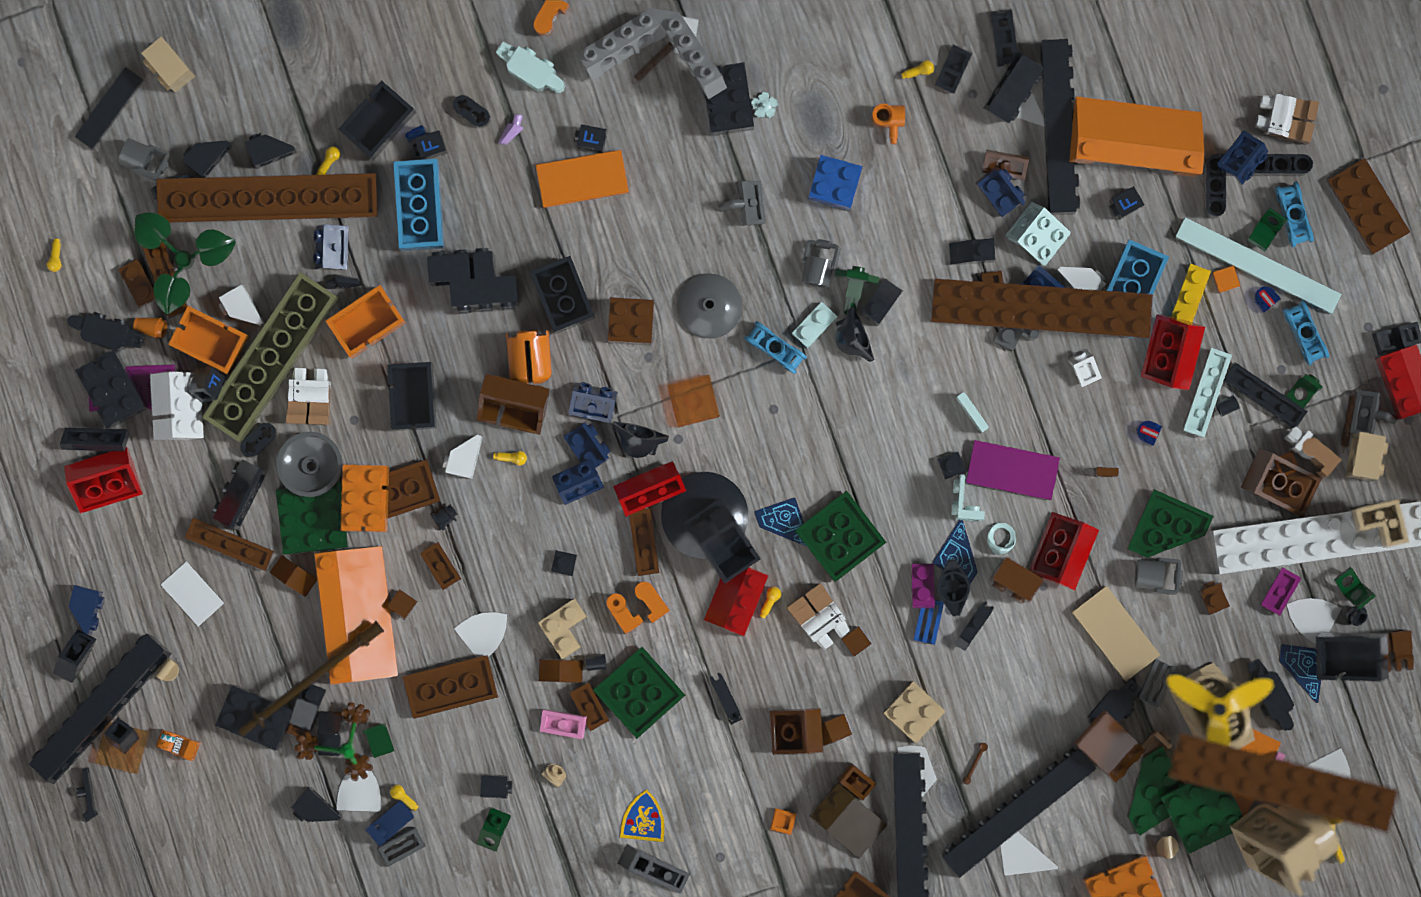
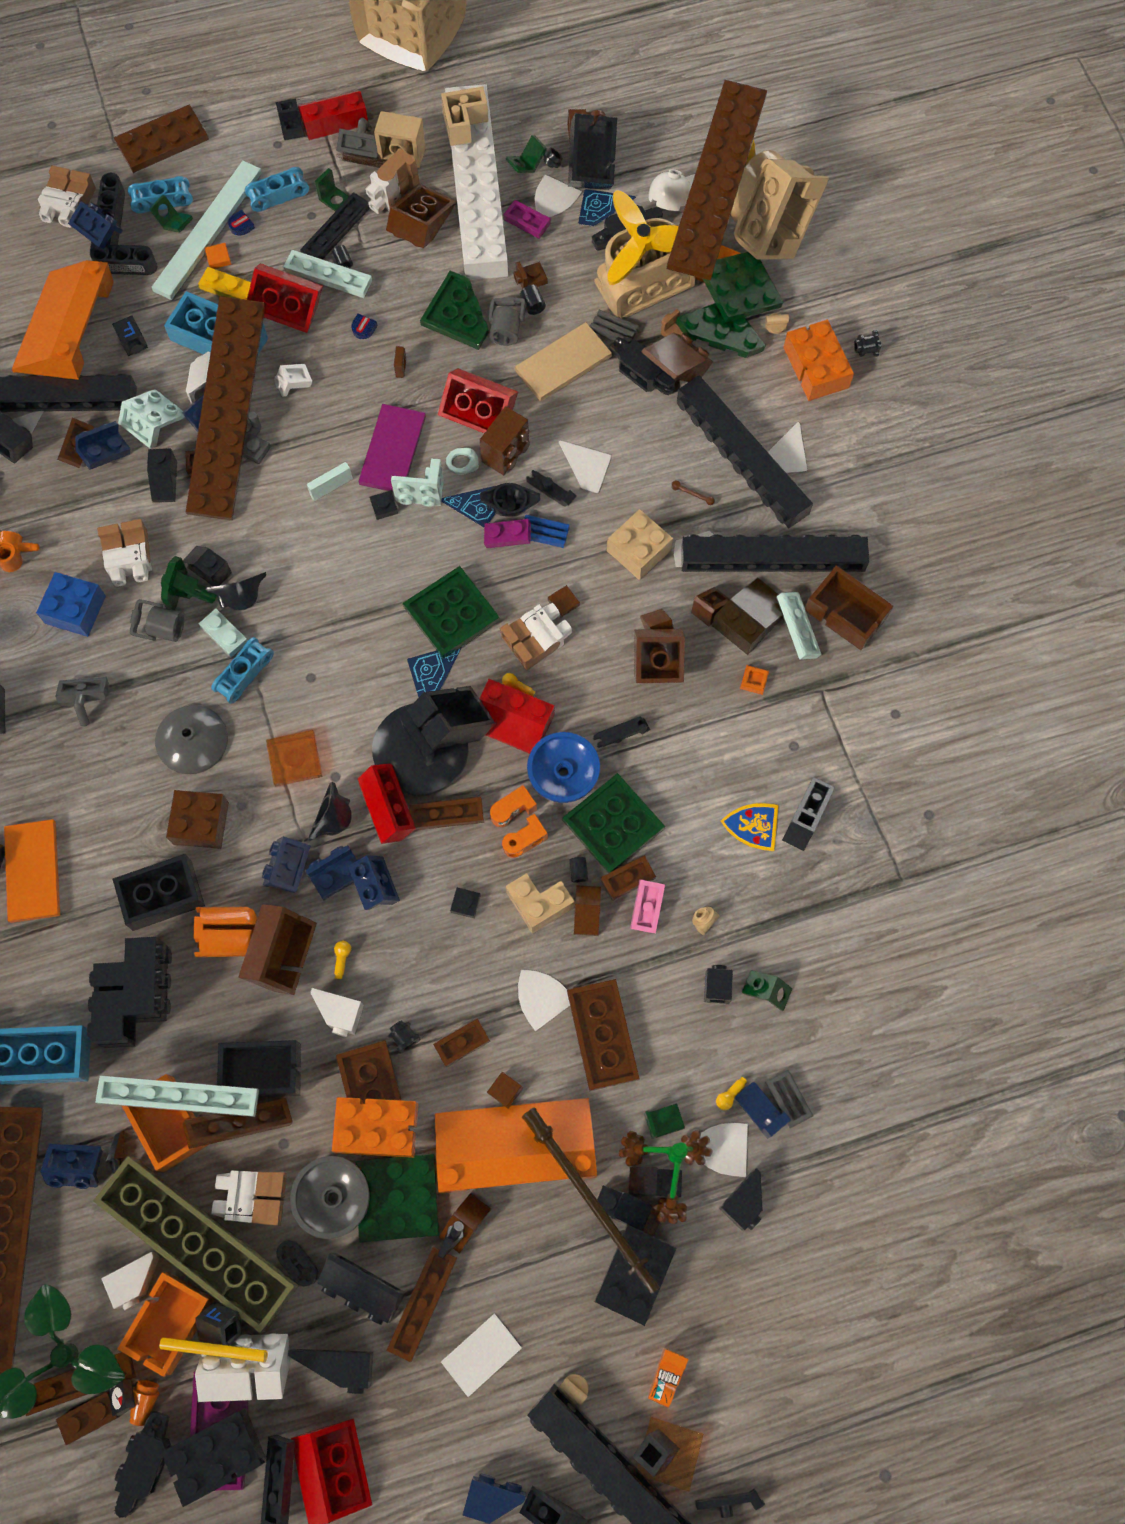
camera: 90 degrees left, 15 degrees down
(152, 311) = (122, 1398): none -> black tile
(179, 483) = (342, 1368): none -> black slope
(187, 385) = (213, 1349): none -> yellow bar
(279, 566) = (452, 1237): none -> black bar
(366, 383) = (223, 1127): none -> reddish brown plate
(384, 333) = (177, 1096): none -> light aqua plate
(685, 629) = (565, 752): none -> blue dish
(836, 863) = (799, 625): none -> light aqua tile
(883, 226) = (125, 551): none -> hips
(1003, 660) = (587, 465): none -> white sticker
(1183, 600) = (533, 299): none -> black beam
(1312, 738) = (670, 190): none -> white cylinder

